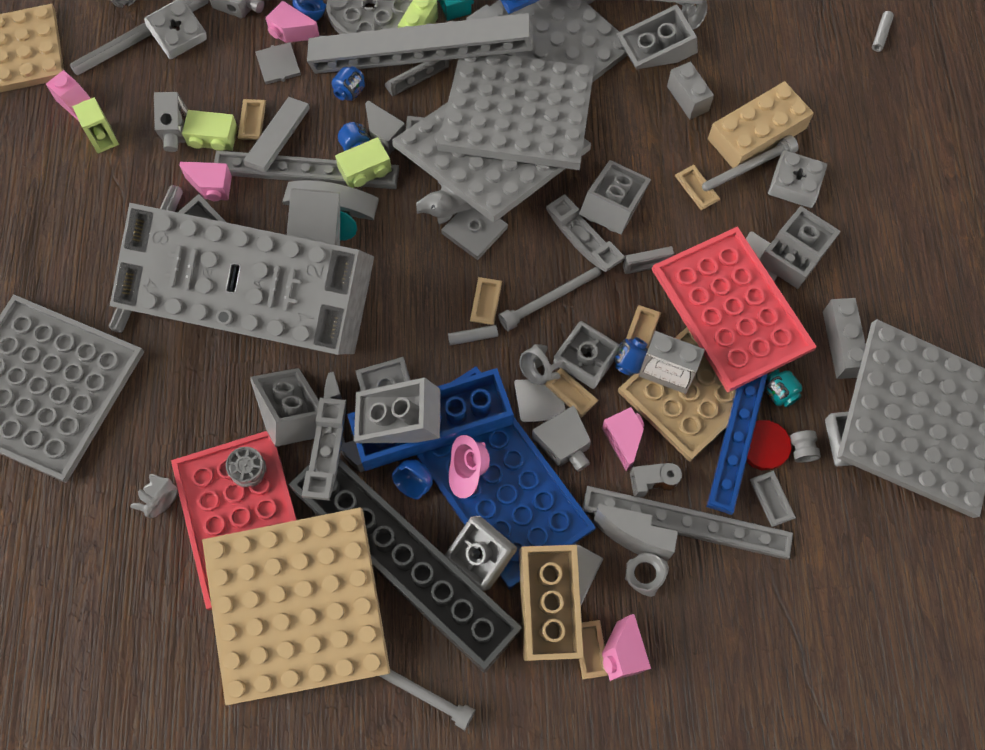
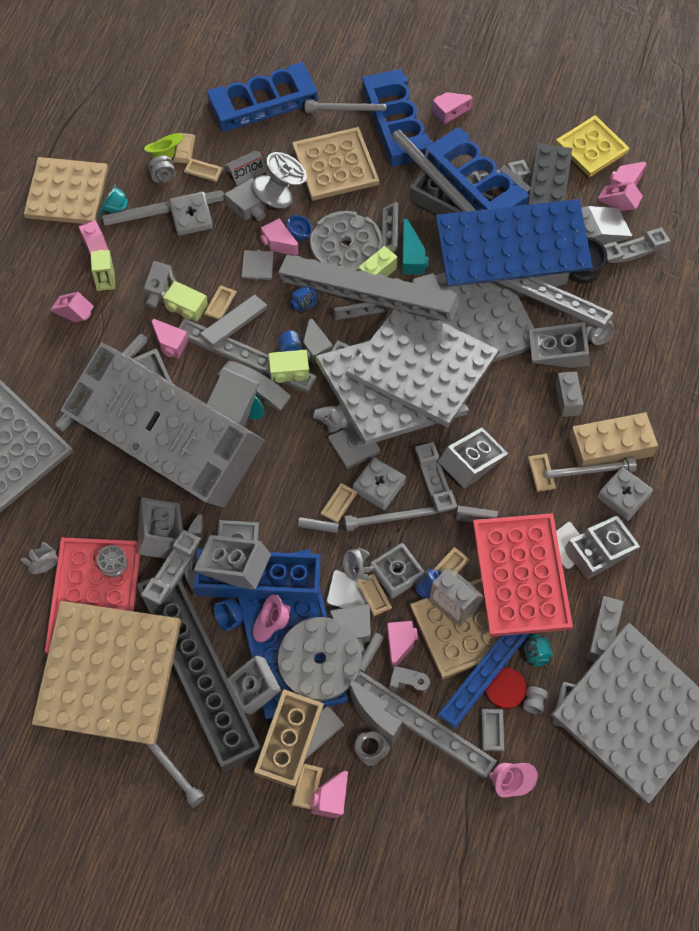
camera: 20 degrees right, 5 degrees down
(76, 181) = (73, 307): none -> bright pink slope
(78, 43) = (114, 202): none -> teal piece
(526, 275) = (380, 494): none -> light grey brick
(551, 518) = (322, 680): none -> light grey plate
(595, 459) = (371, 650): none -> light grey piece
(821, 547) = (514, 779): none -> bright pink piece

